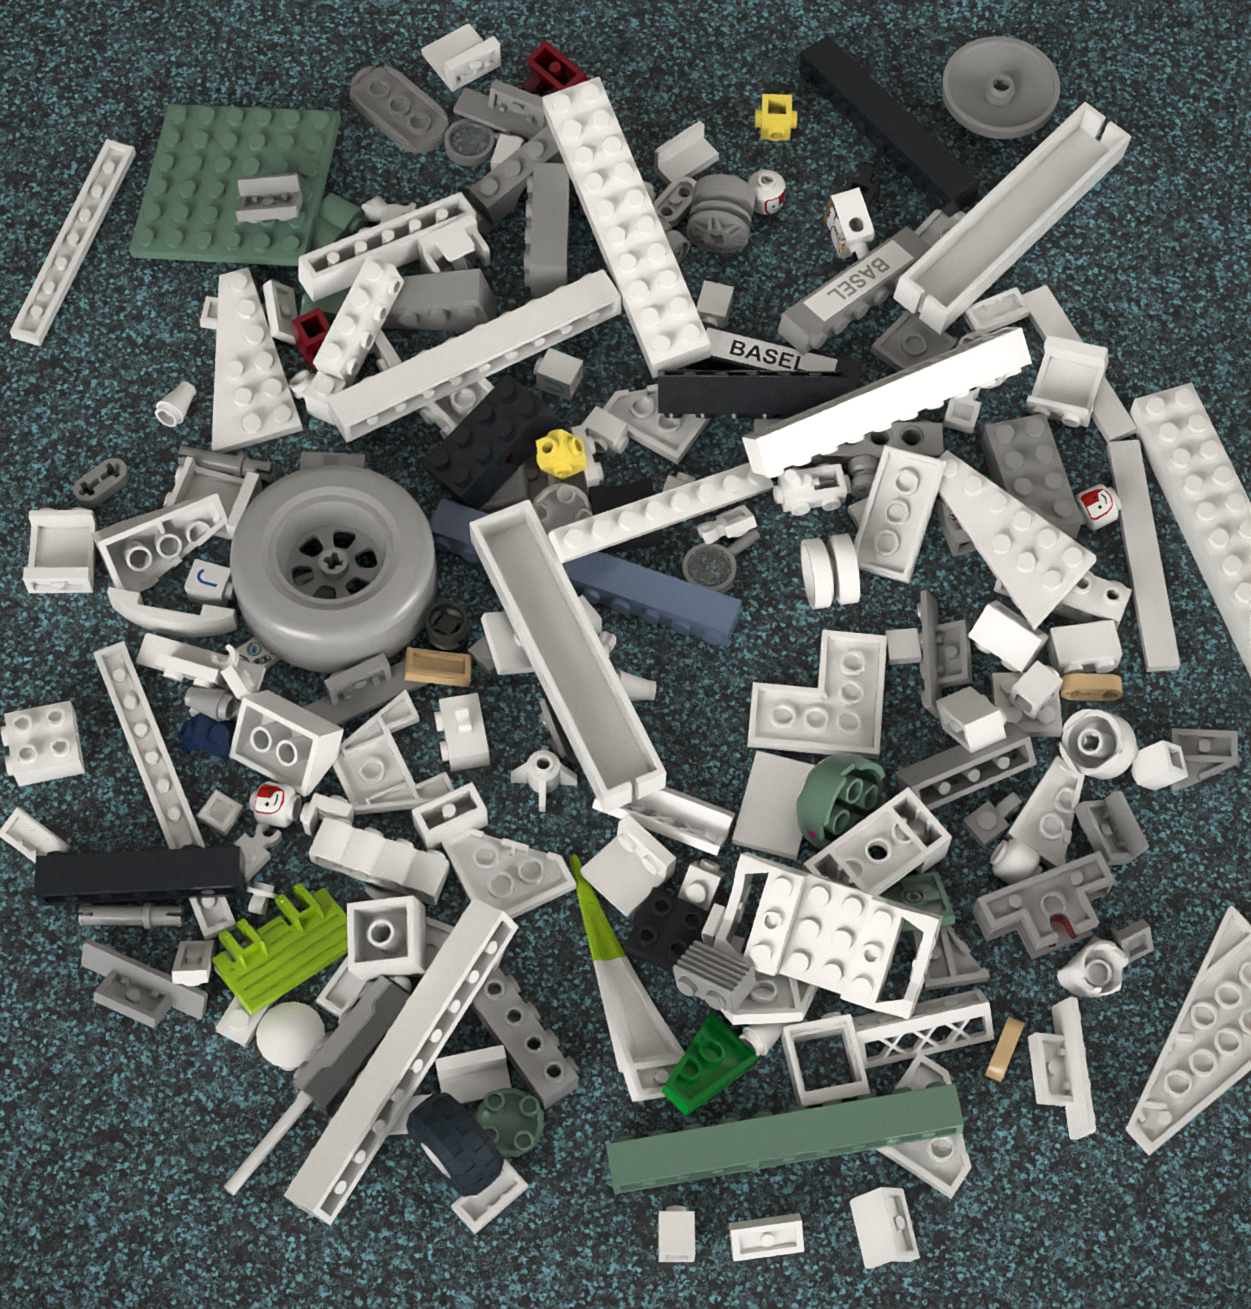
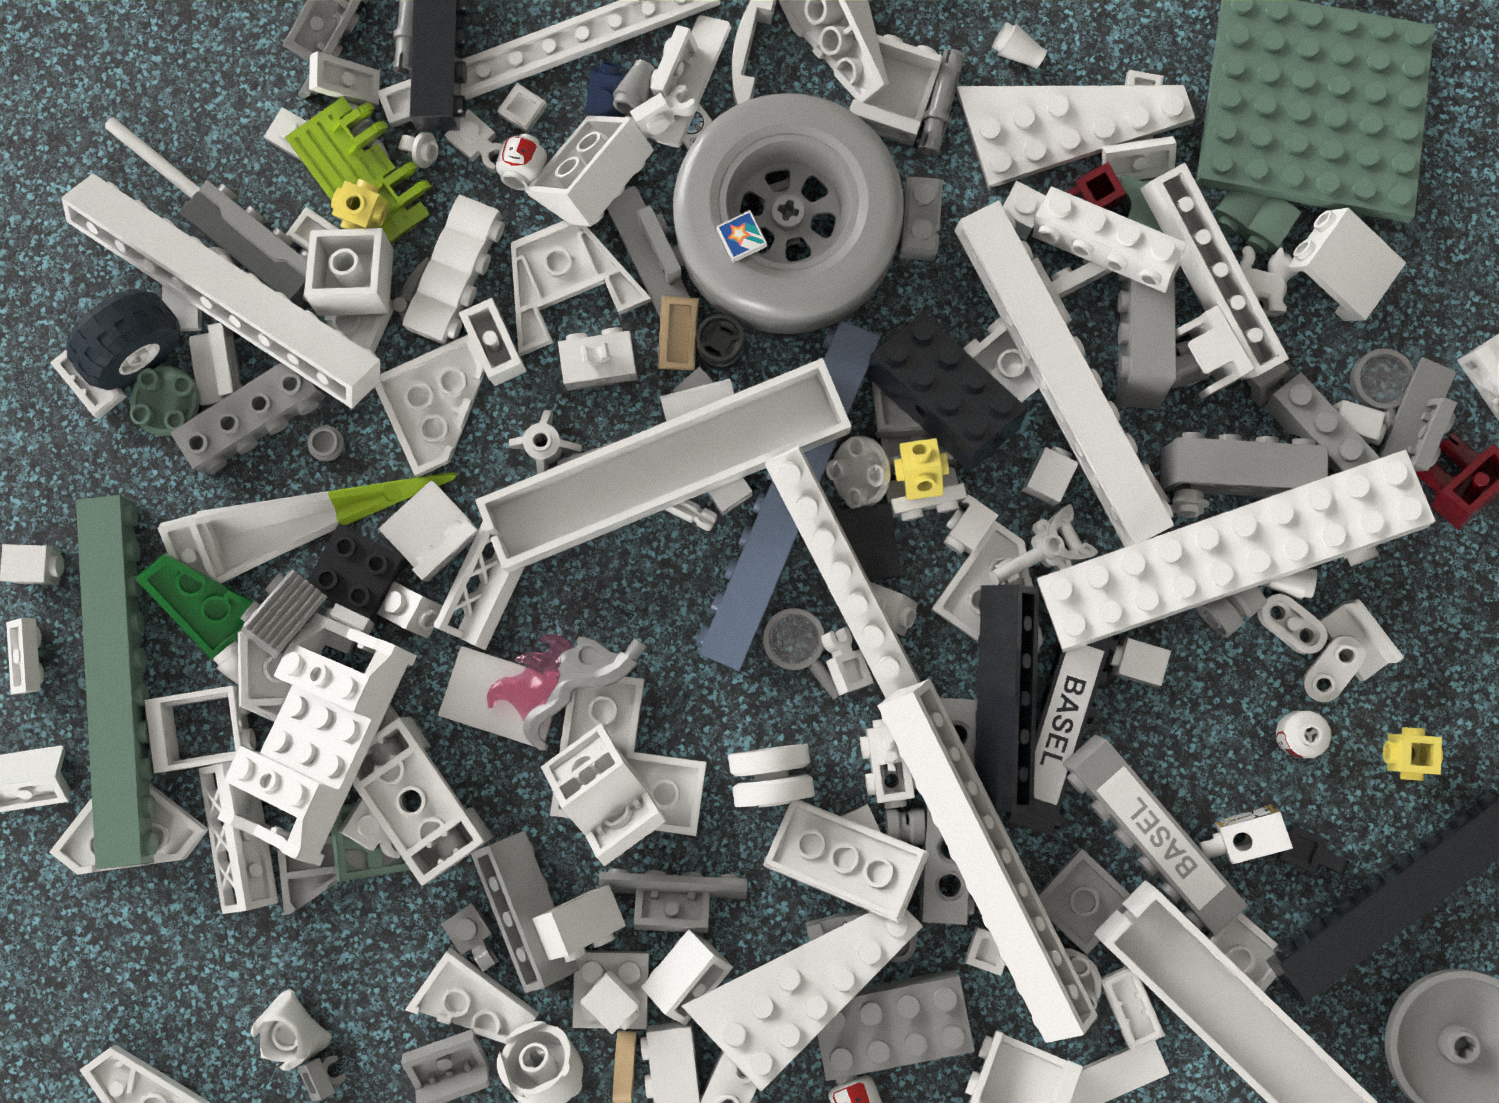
camera: 95 degrees right, 20 degrees up
(209, 584) = (788, 78): white brick -> none
(269, 197) = (1278, 133): light grey bracket -> none
(289, 1034) = (272, 182): white dish -> none
(300, 383) = (1041, 181): white plate -> none
(323, 942) = (369, 214): none -> light yellow brick
(326, 807) = (514, 220): white bracket -> none
(364, 580) = (741, 236): none -> tile
(374, 159) = (1348, 262): none -> white panel
(399, 108) = (1432, 296): light grey tile -> none
(546, 970) = (325, 443): none -> light grey plate
(577, 270) = (1189, 503): none -> white plate
(621, 370) = (1047, 548): none -> white piece
(637, 687) = (645, 543): white cone -> none
(711, 165) = (1330, 666): none -> white plate
(721, 213) = (1267, 676): light grey wheel -> none
(754, 752) = (555, 674): none -> piece
(838, 797) = (481, 763): sand green cylinder -> none
(857, 697) = (602, 794): none -> white bracket
(903, 646) = (689, 854): white tile -> none
(909, 891) = (366, 831): none -> white plate
(1004, 1049) = (205, 923): tan beam -> none
(1015, 861) = (414, 957): white head -> none
(1049, 907) = (357, 988): light grey piece -> none
(1061, 1069) = (179, 983): white bracket -> none

